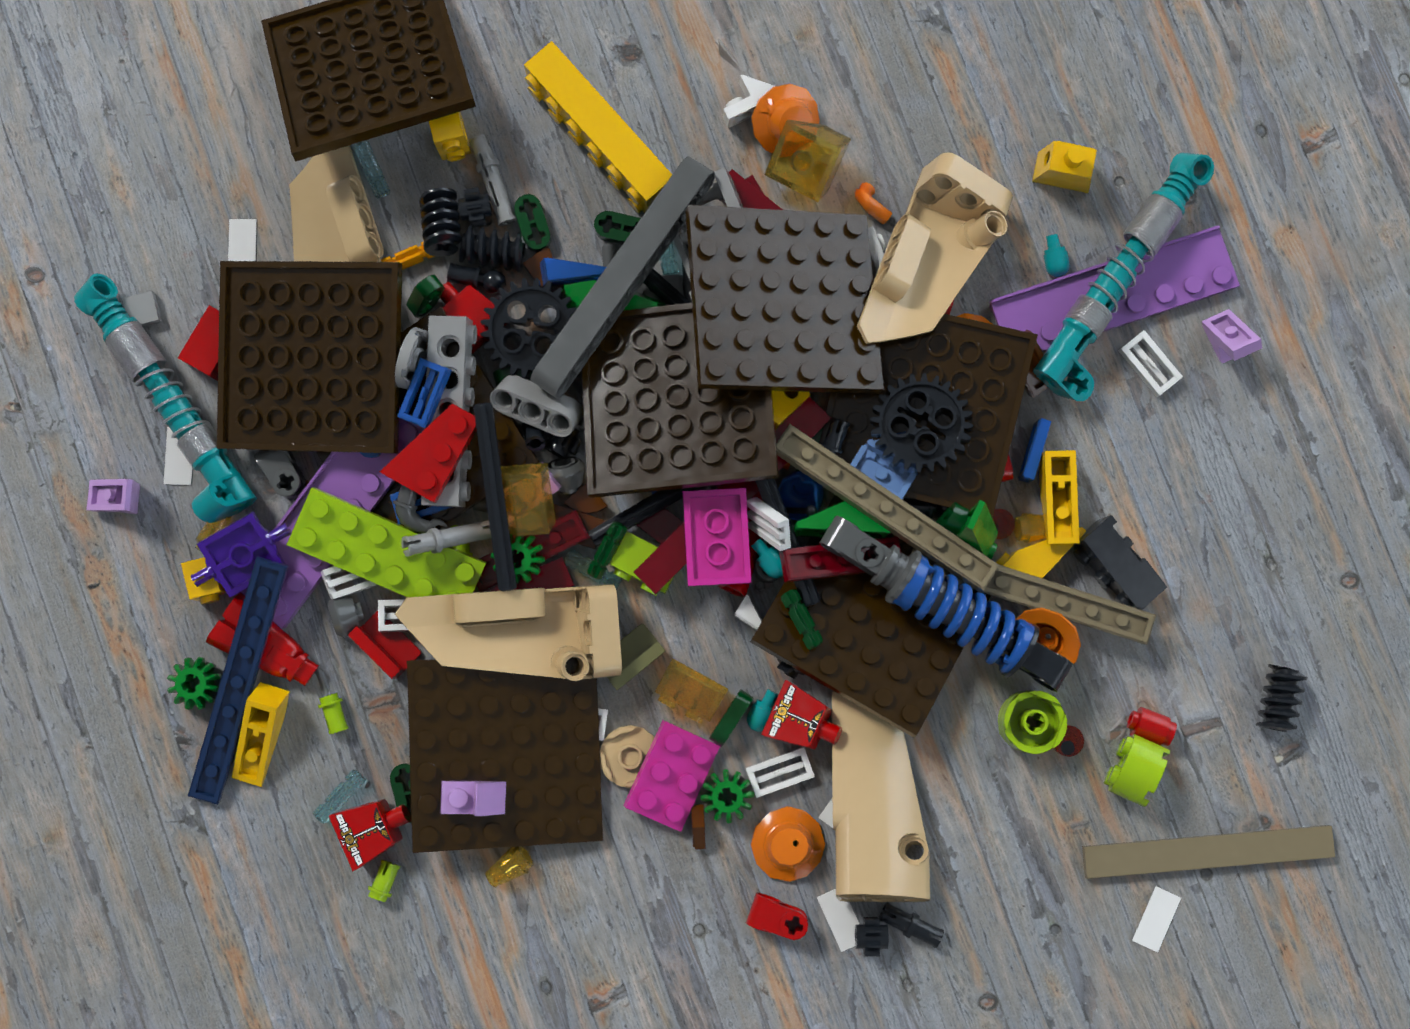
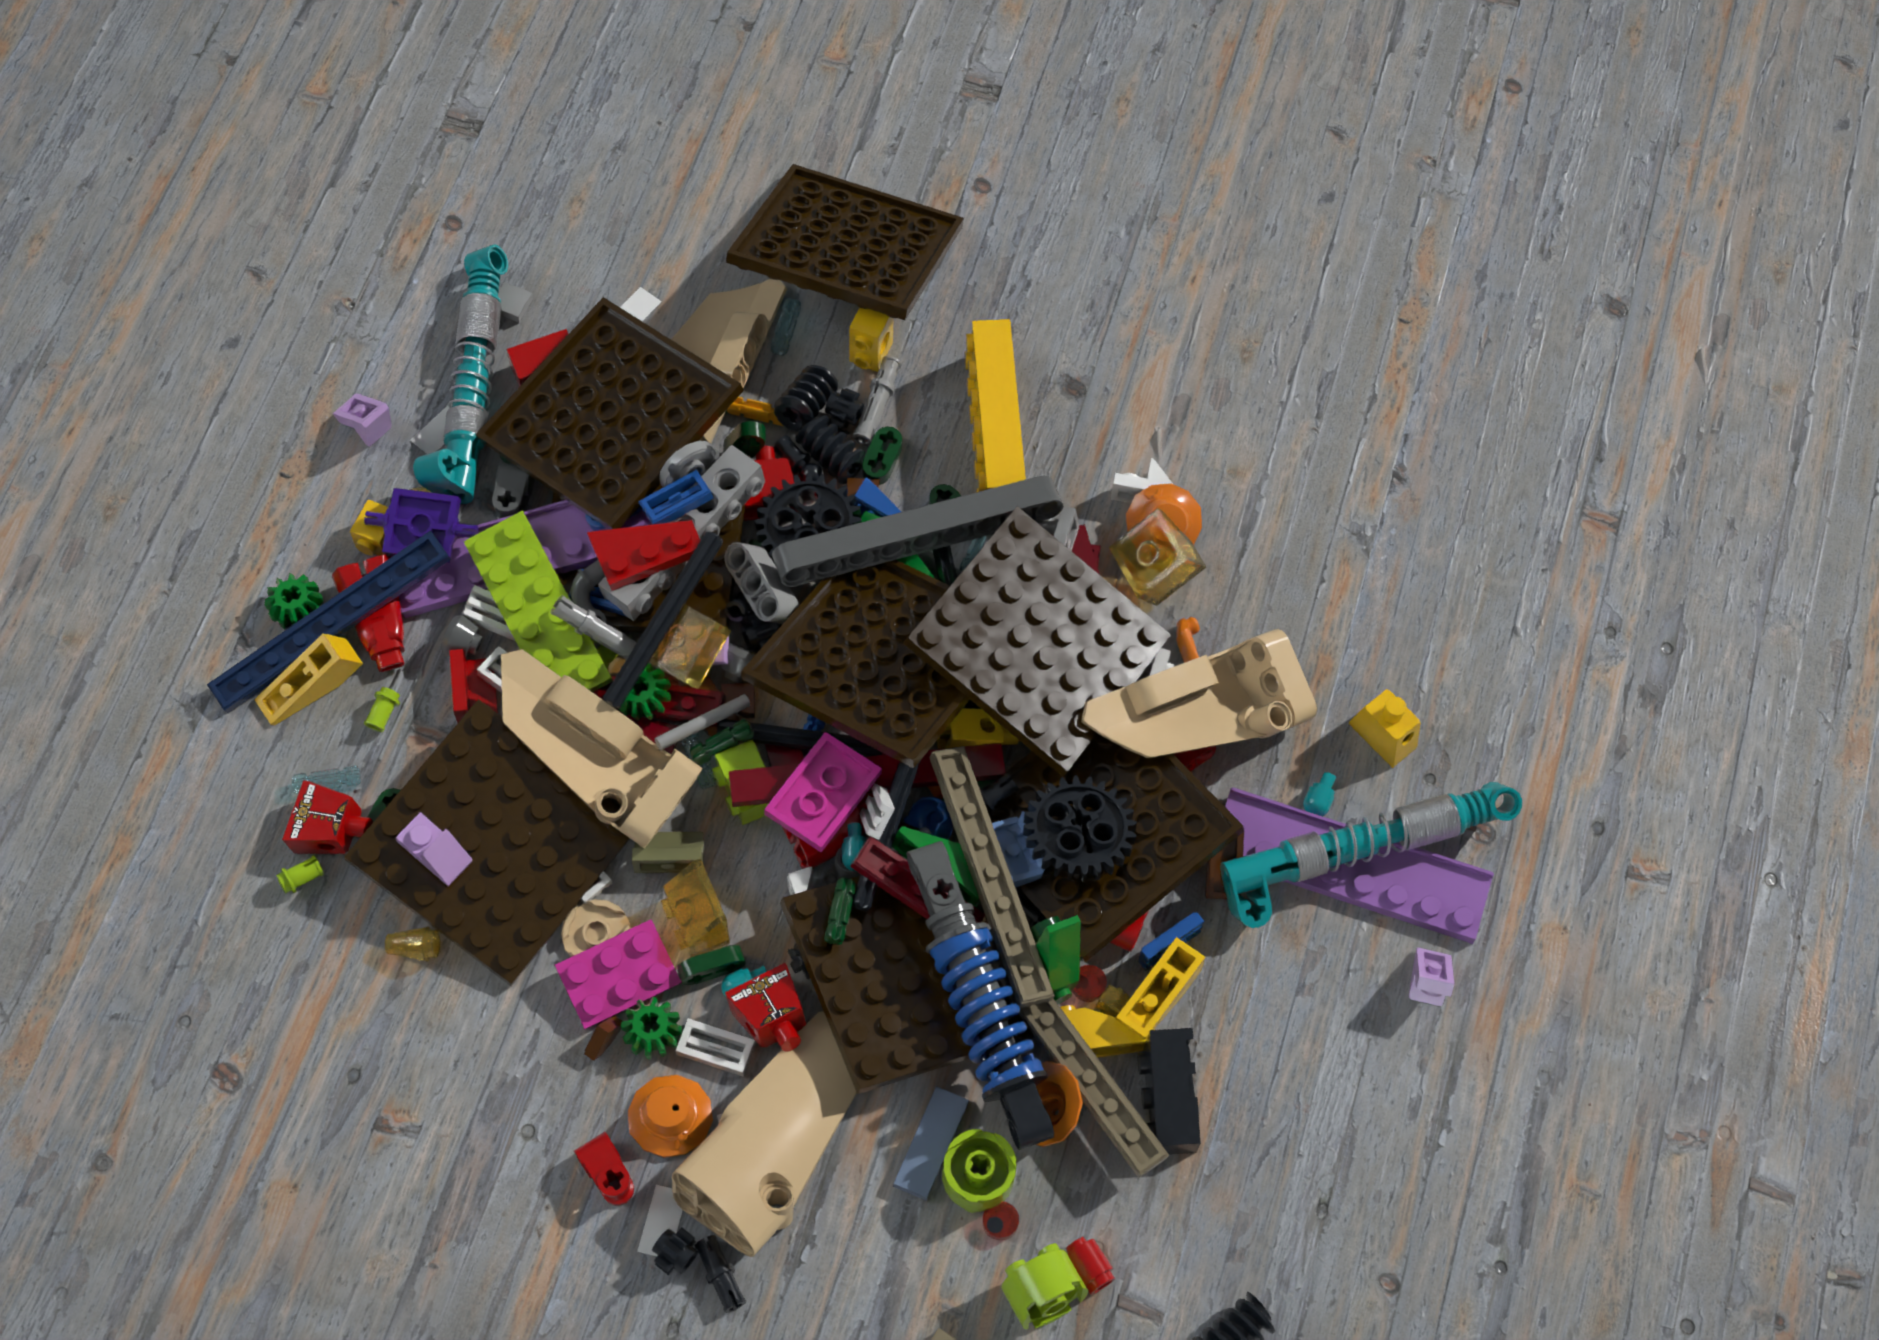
camera: 40 degrees right, 20 degrees down
(581, 546) = (702, 722): none -> light grey bar
(980, 723) = (931, 1143): none -> sand blue tile
(1158, 355) = (1340, 977): white tile -> none

